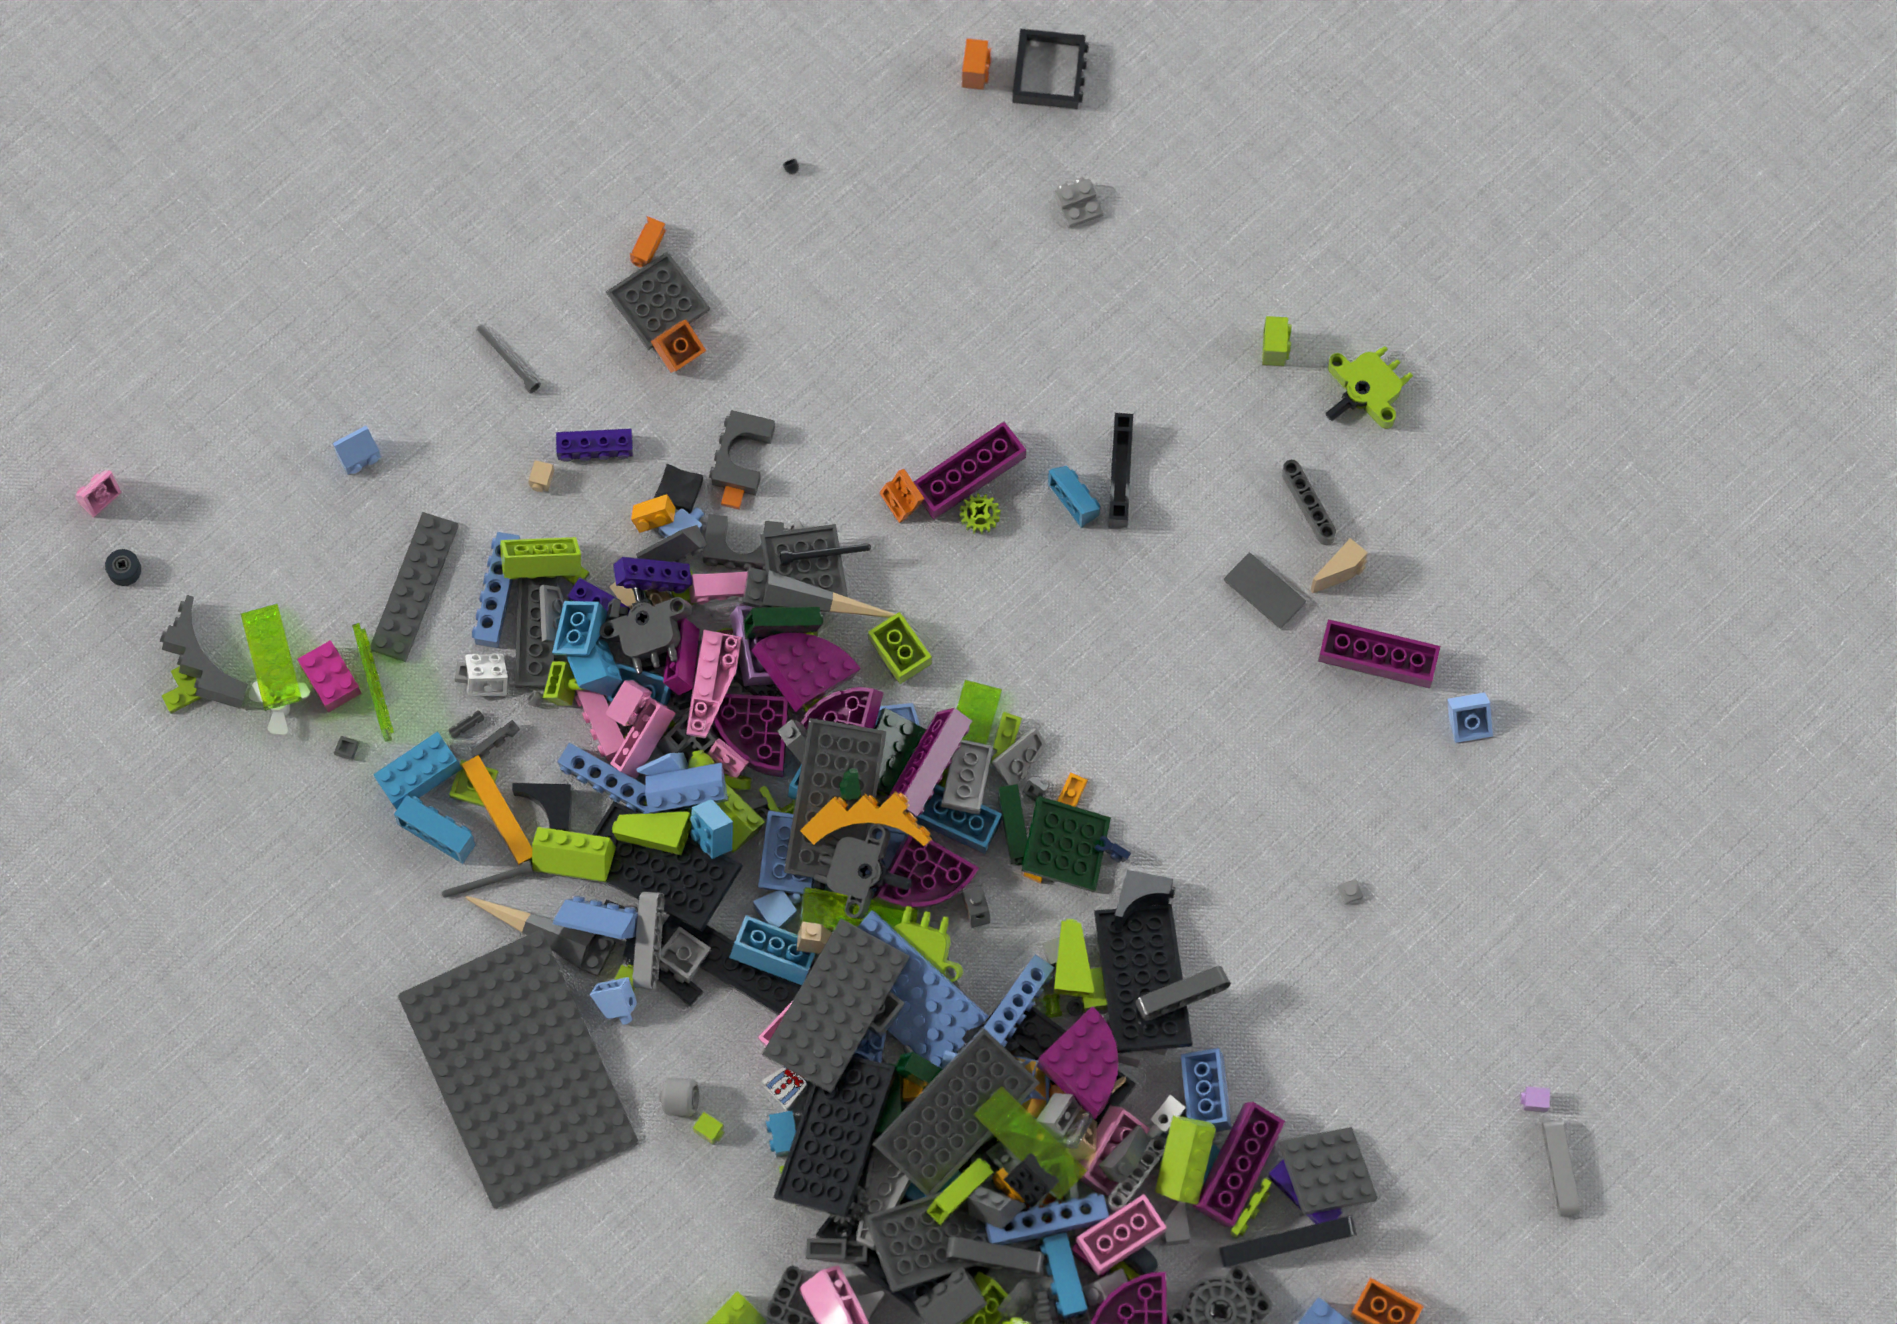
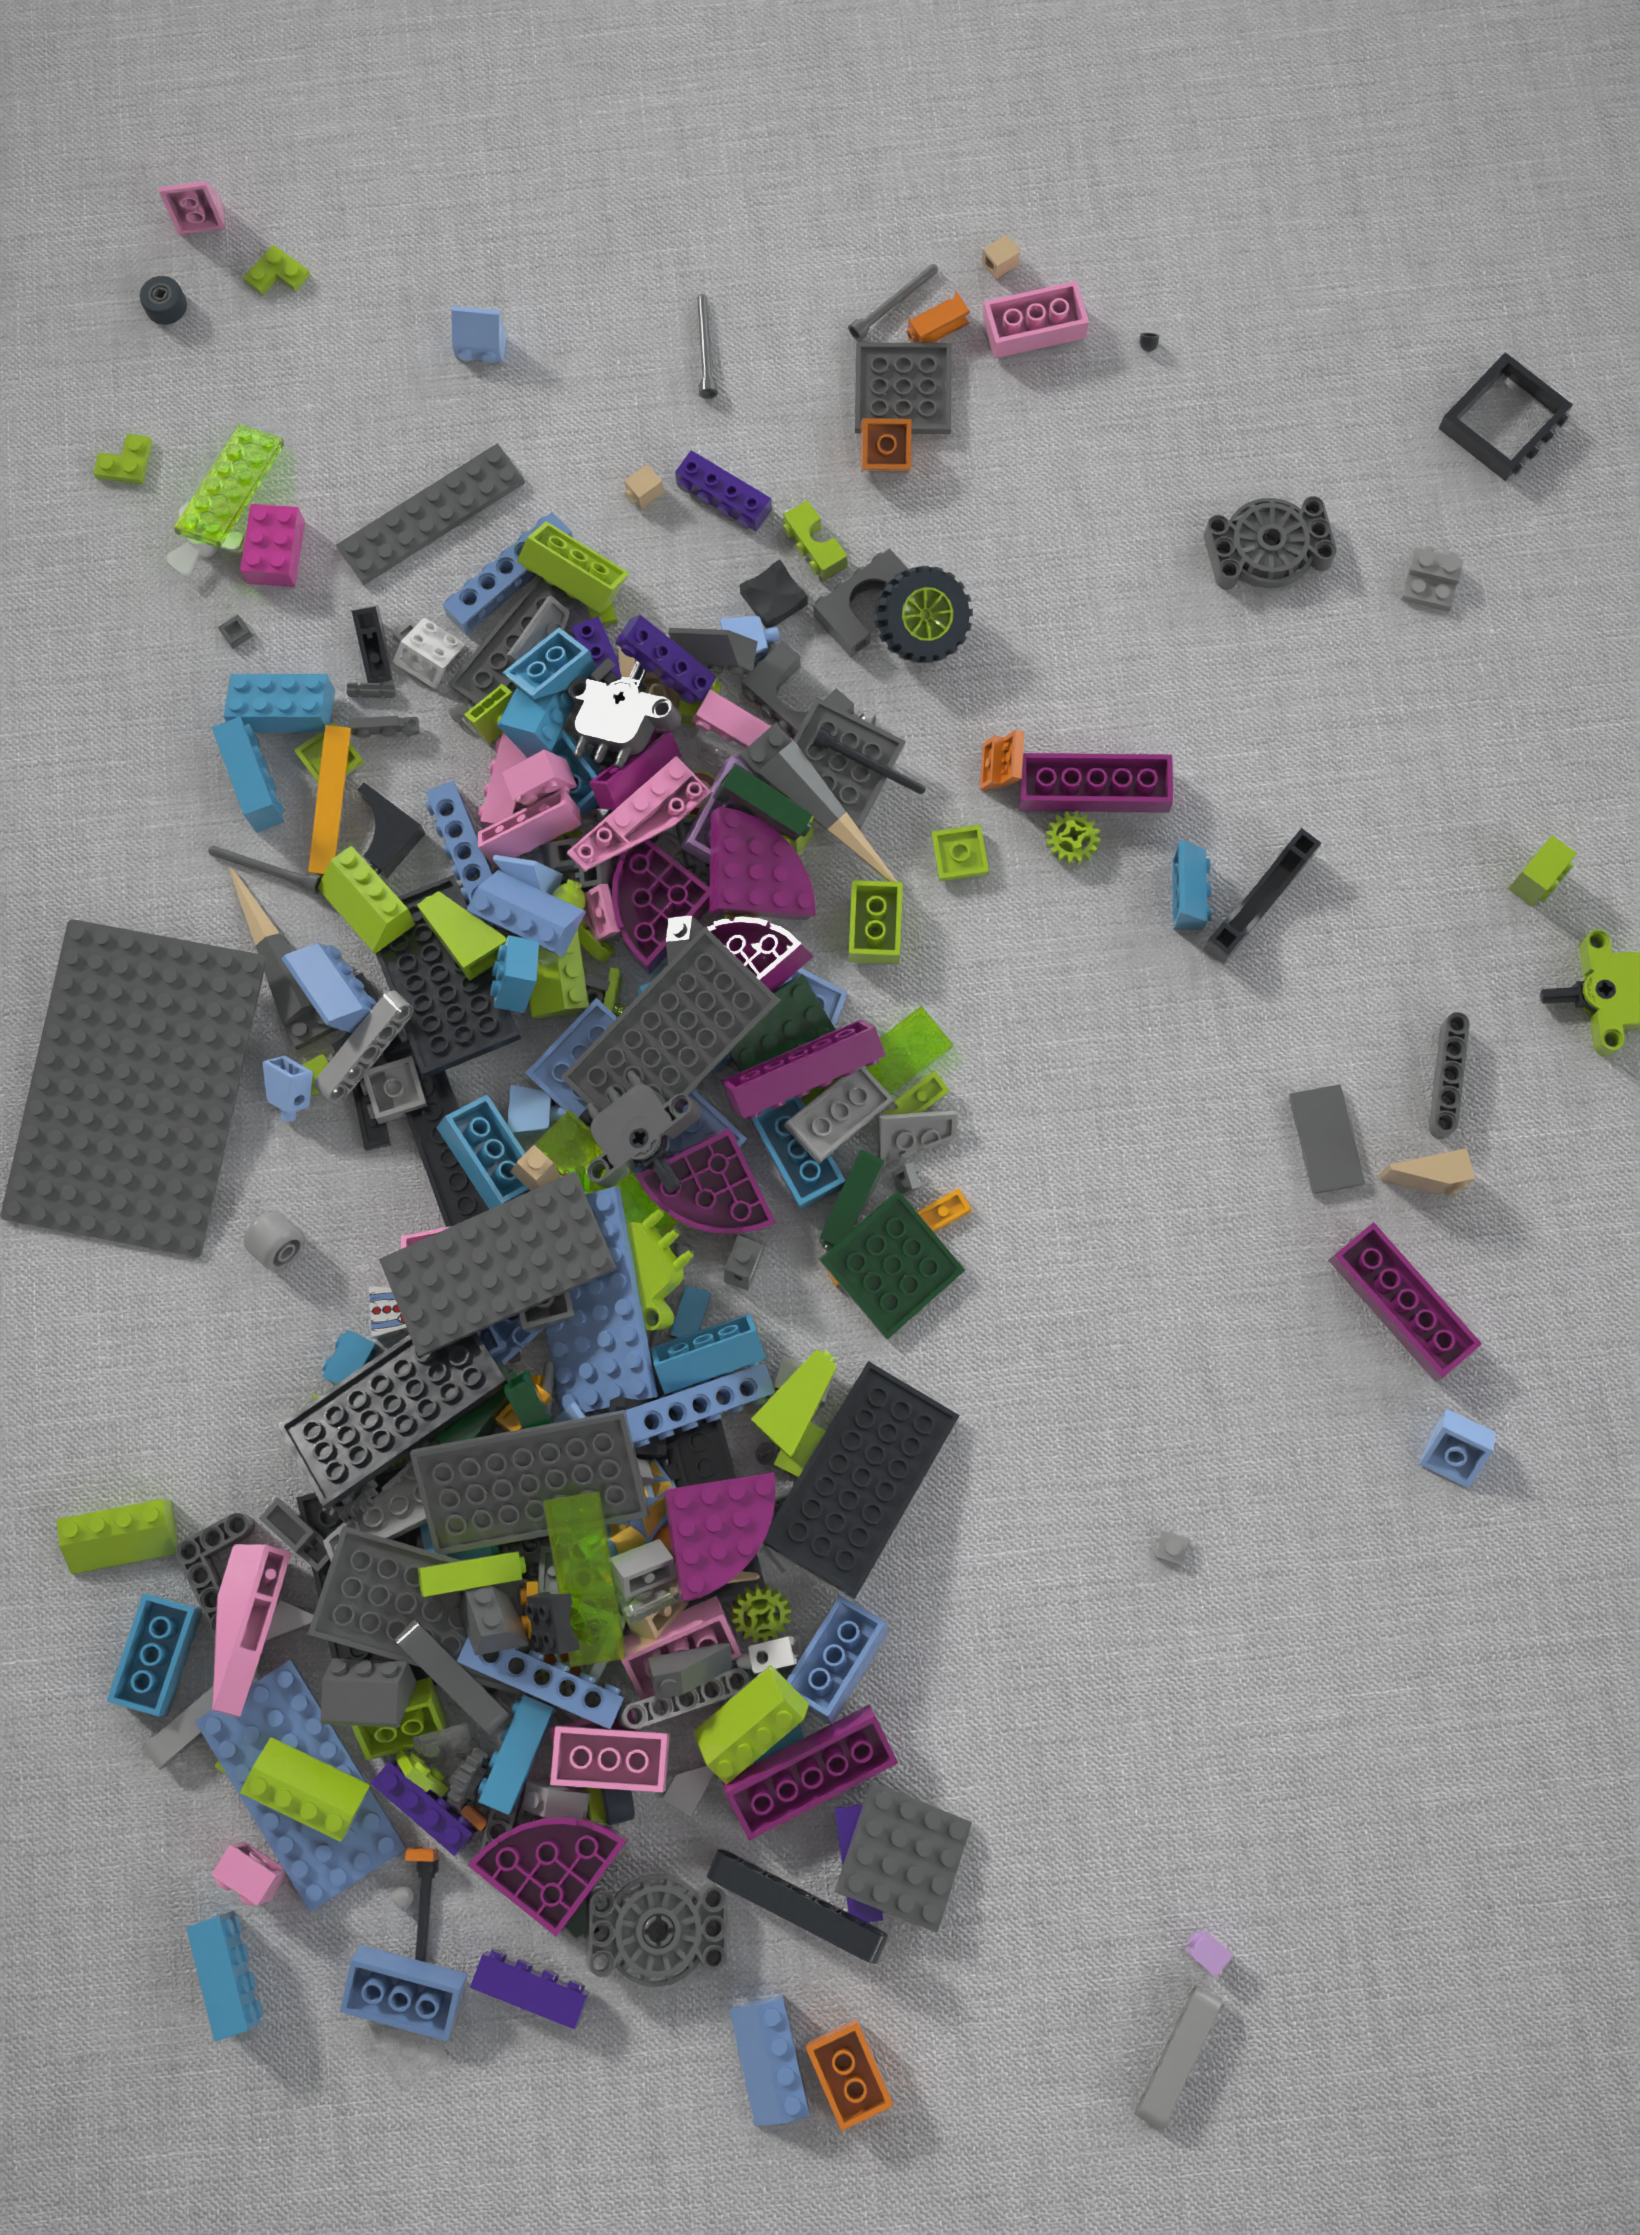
camera: 40 degrees right, 5 degrees up
(180, 492) = (273, 266): none -> lime plate
(210, 680) = (148, 435): dark grey arch -> none
(372, 679) = (306, 579): clear neon green plate -> none
(444, 693) = (372, 644): none -> black slope
(600, 280) = (860, 328): none -> dark grey piece
(653, 513) = (724, 601): light orange brick -> none
(656, 173) = (1001, 256): none -> tan brick
(691, 444) = (823, 557): none -> lime arch
(709, 1128) = (278, 1296): lime brick -> none
(710, 201) = (1035, 319): none -> bright pink brick
(732, 497) = (824, 643): orange tile -> none
(786, 437) = (923, 614): none -> black wheel
(850, 785) = (694, 1032): dark green rock -> none
(865, 810) = (689, 1072): light orange arch -> none
(917, 570) = (959, 853): none -> lime plate
(963, 264) = (1265, 564): none -> dark grey piece
(967, 959) = (690, 1312): none -> dark azure tile
(976, 64) = (1428, 358): orange brick -> none
(998, 971) = (707, 1354): none -> dark azure brick
(1052, 1005) = (743, 1433): clear neon green bush -> none
(1117, 852) = (941, 1314): dark blue plate -> none
(1134, 1094) = (756, 1604): none -> lime gear
(1142, 891) = (935, 1377): arch -> none
(1182, 993) = (888, 1531): dark grey beam -> none
(1252, 1211) = (786, 1834): lime wing -> none

